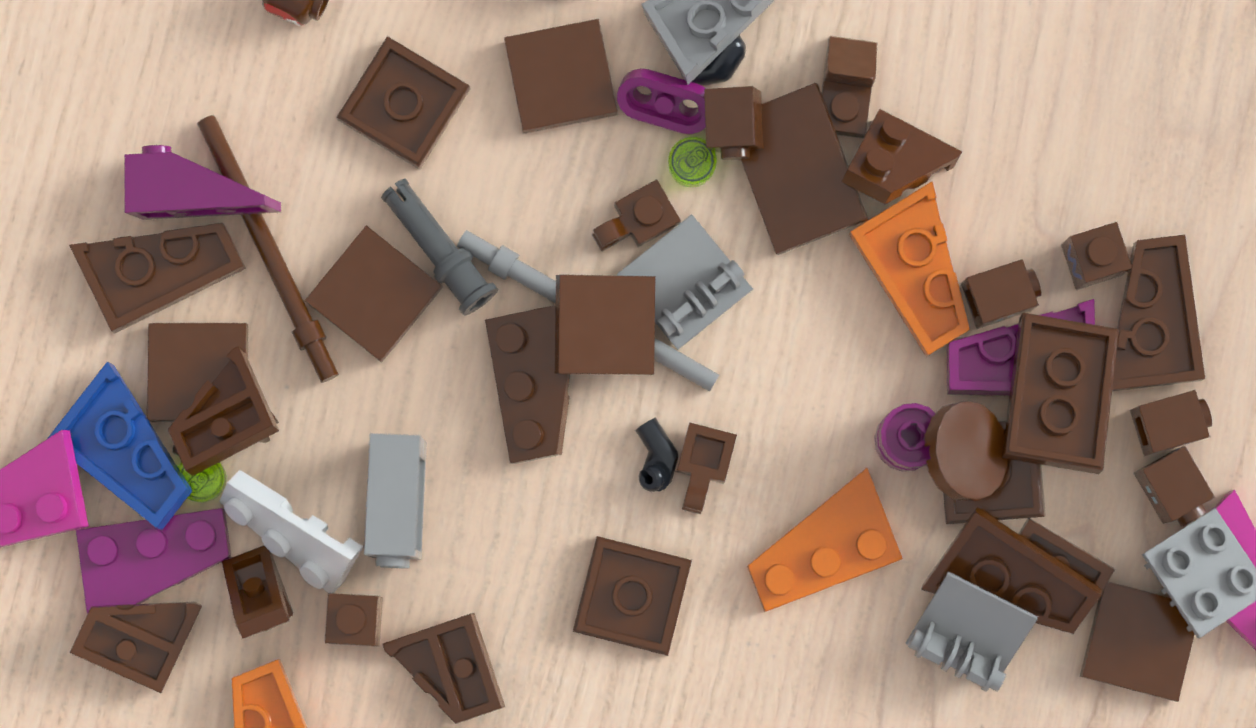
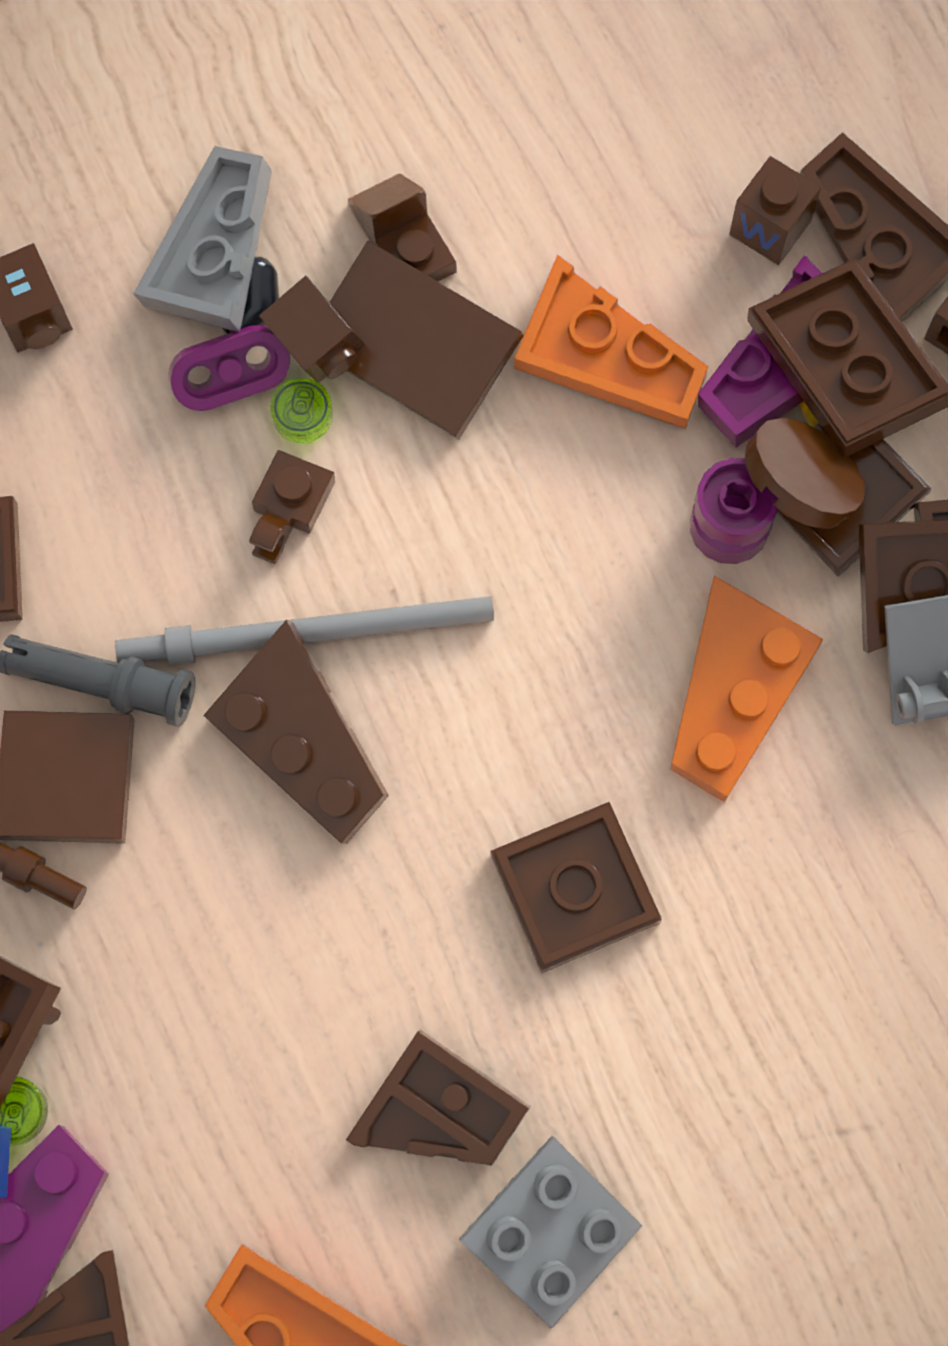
camera: 30 degrees left, 10 degrees down
(256, 592) = (163, 1187): reddish brown slope -> none
(303, 541) = (174, 1092): white wing -> none
(353, 619) = (294, 1135): reddish brown brick -> none
(395, 499) = (243, 965): light grey window -> none
(561, 76) = (102, 422): reddish brown tile -> none
(605, 324) = (333, 623): reddish brown tile -> none
(661, 458) = (496, 722): black arm -> none
(691, 281) = (385, 530): light grey hinge -> none
(705, 458) = (544, 688): reddish brown plate -> none
(896, 159) = (505, 258): reddish brown wing -> none
(1001, 293) = (711, 311): reddish brown brick -> none

